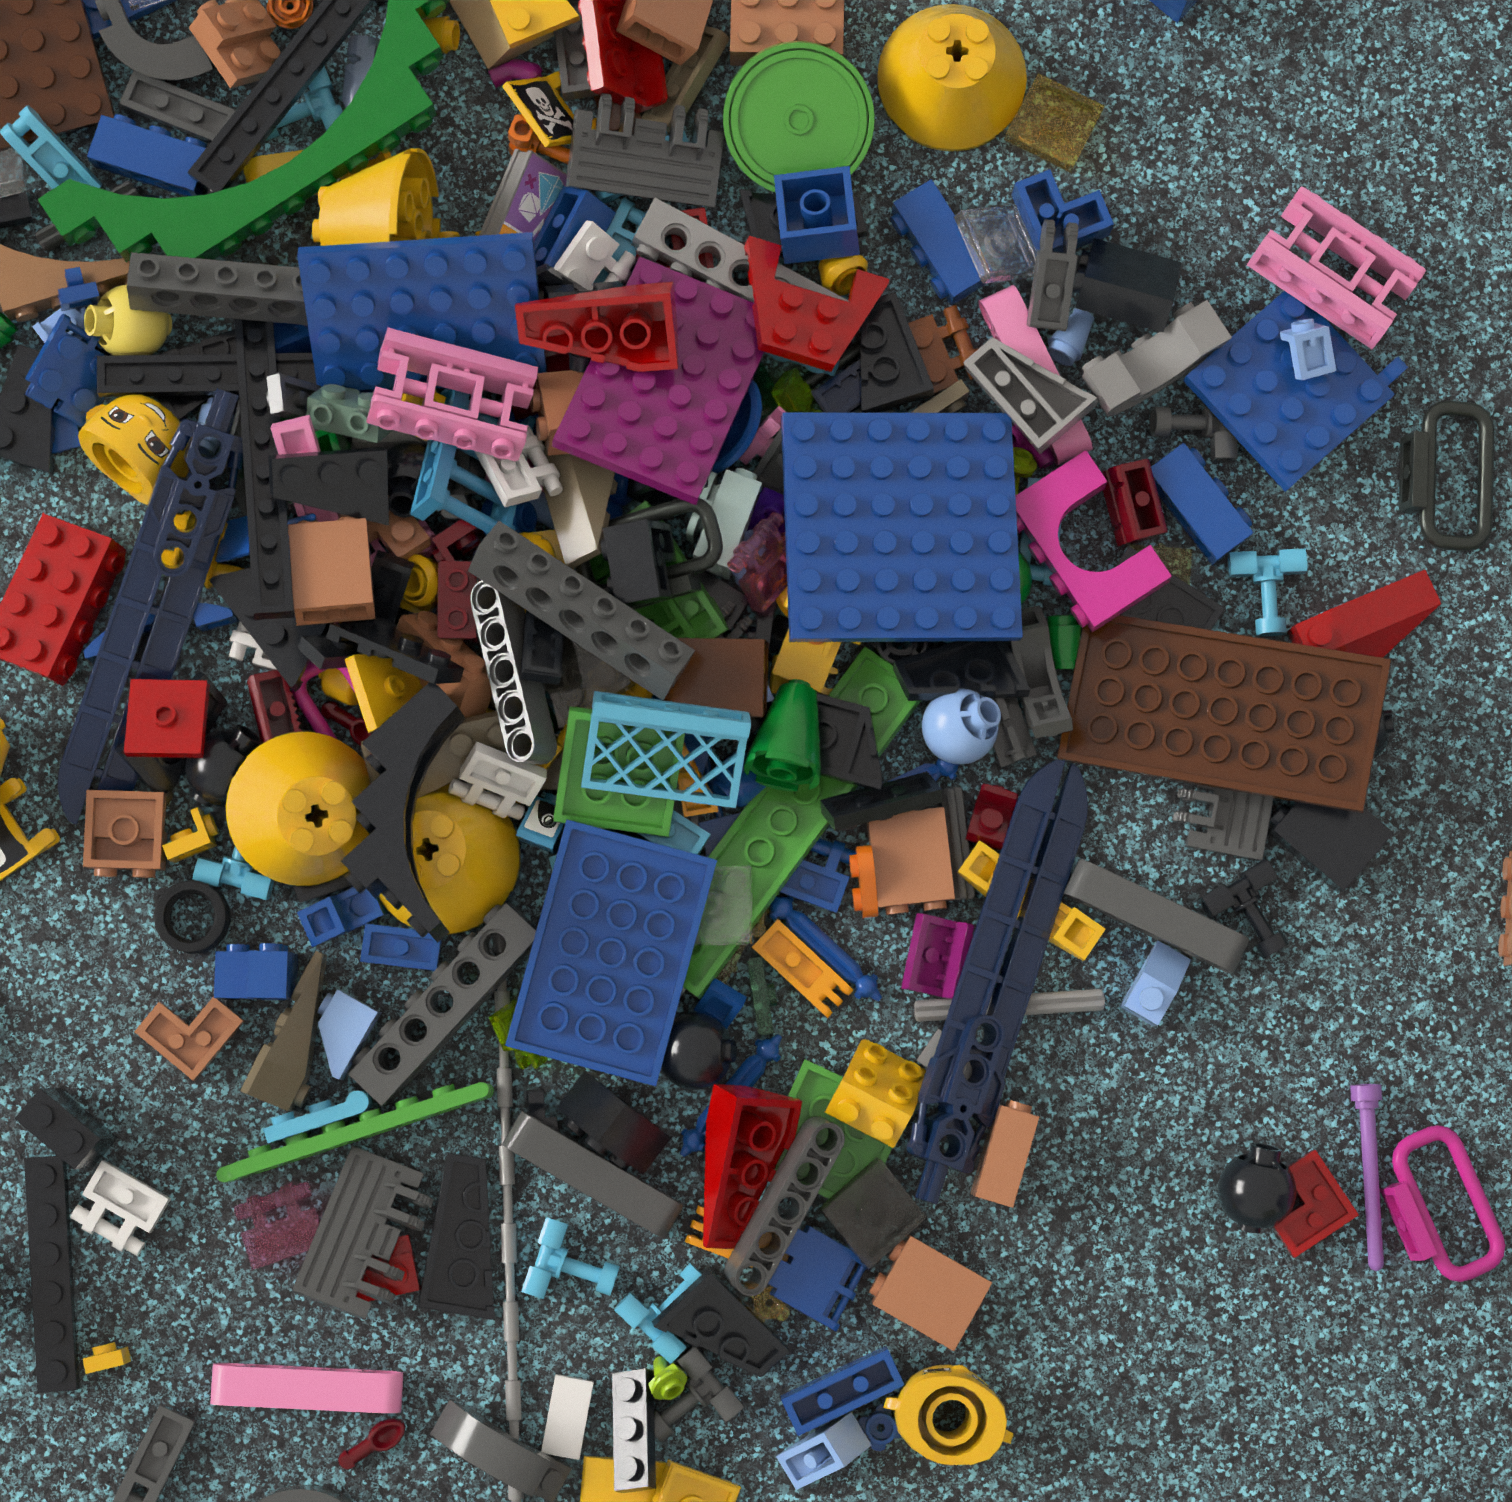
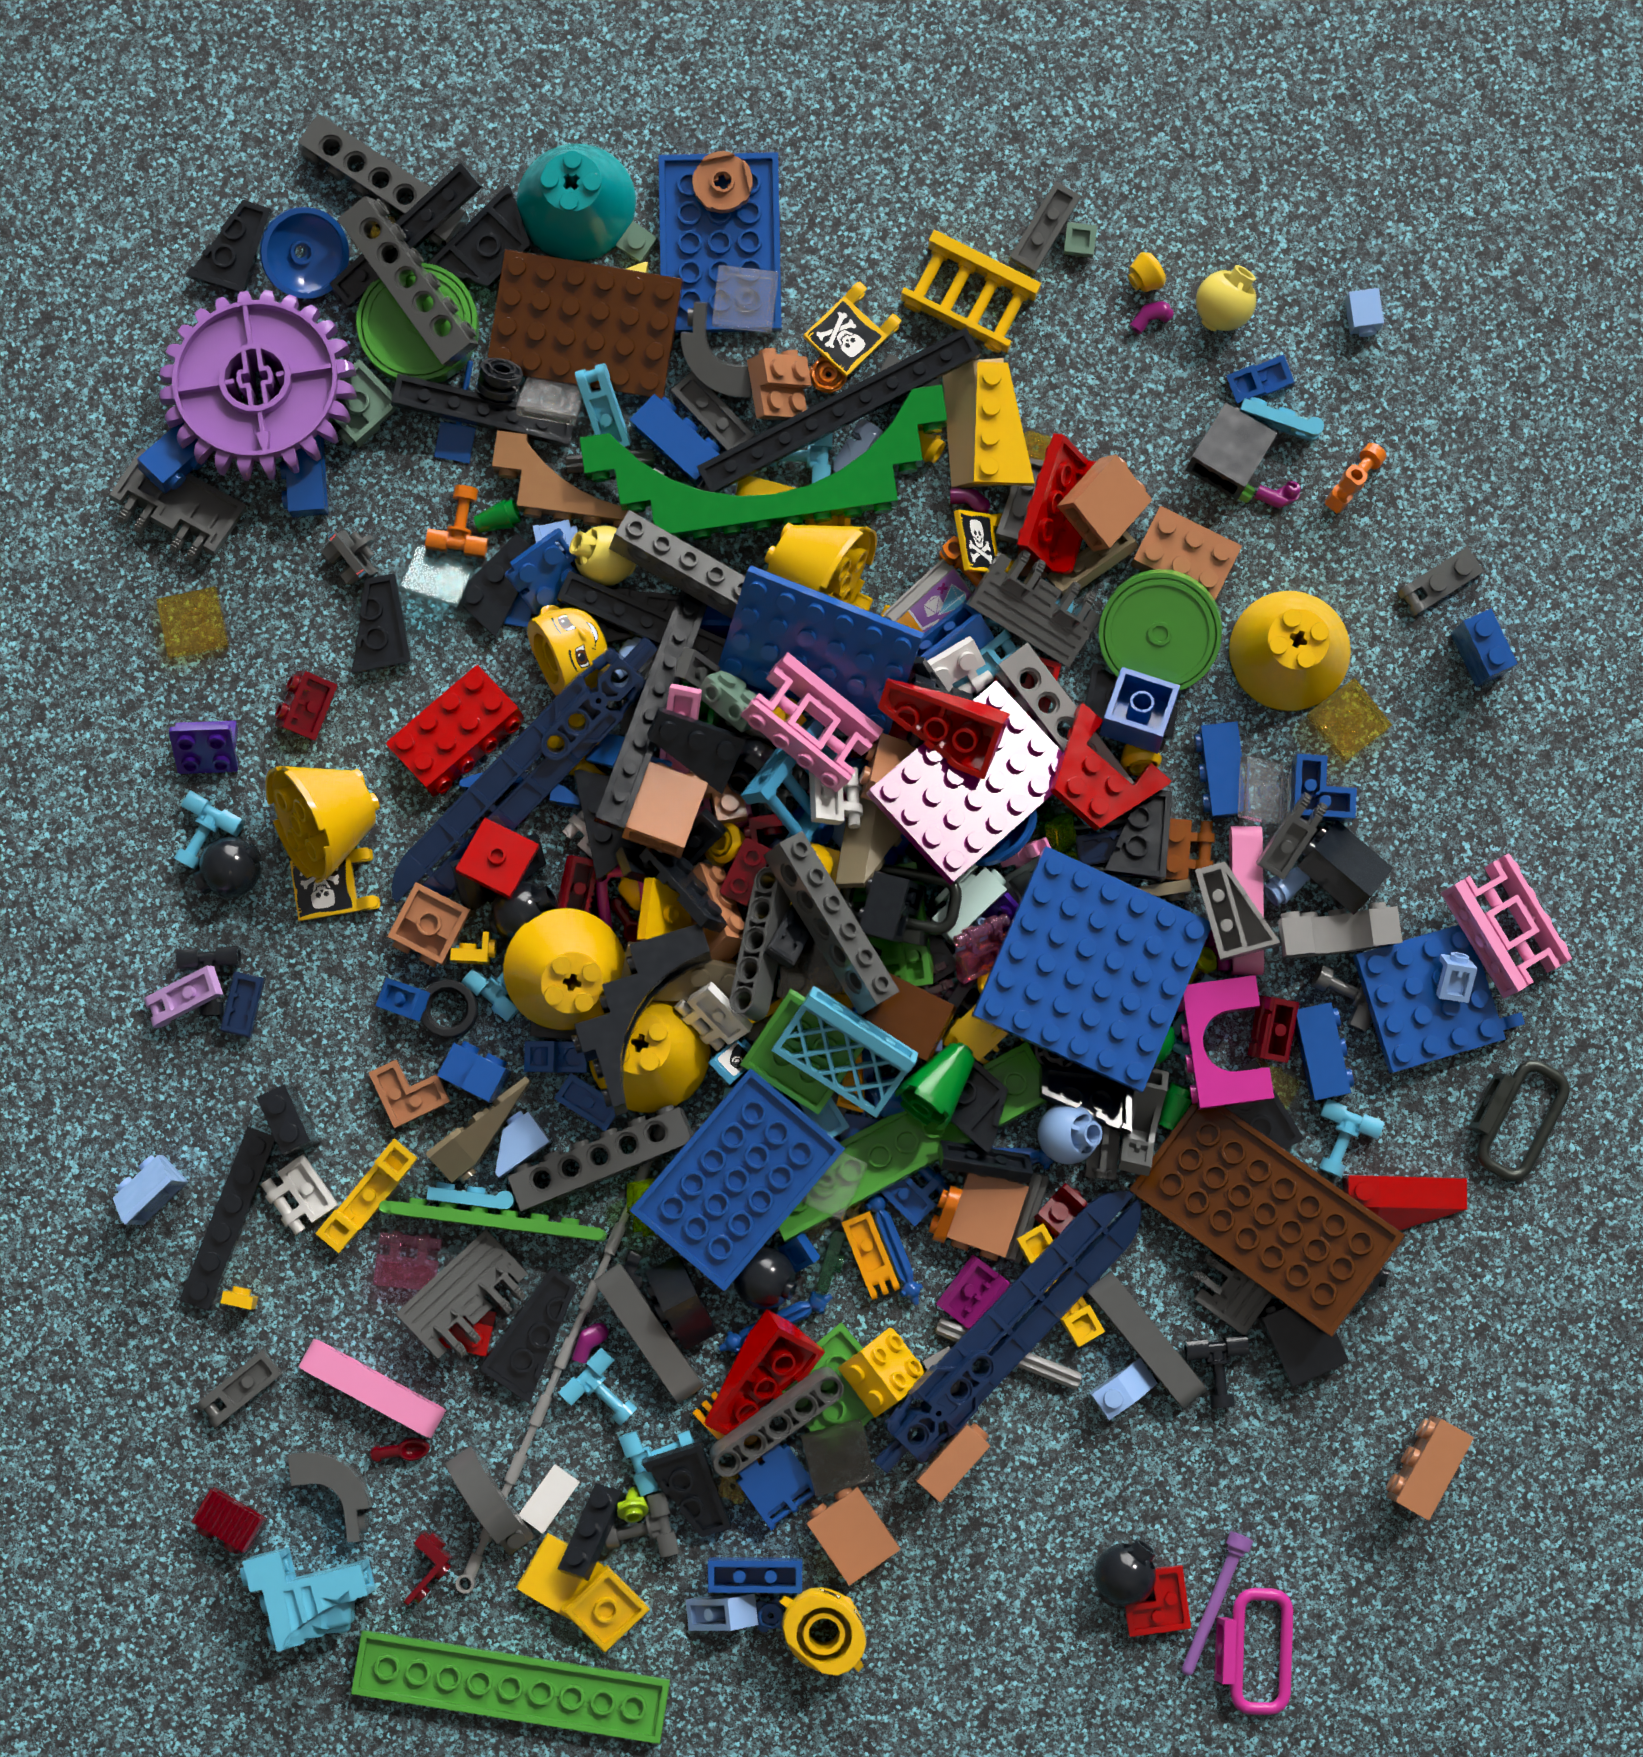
camera: 30 degrees right, 0 degrees up
(77, 293) = (576, 517): blue tile -> none
(134, 930) = (403, 999): none -> blue plate
(197, 1179) = (366, 1196): none -> yellow slope
(527, 1214) = (588, 1339): none -> magenta arm

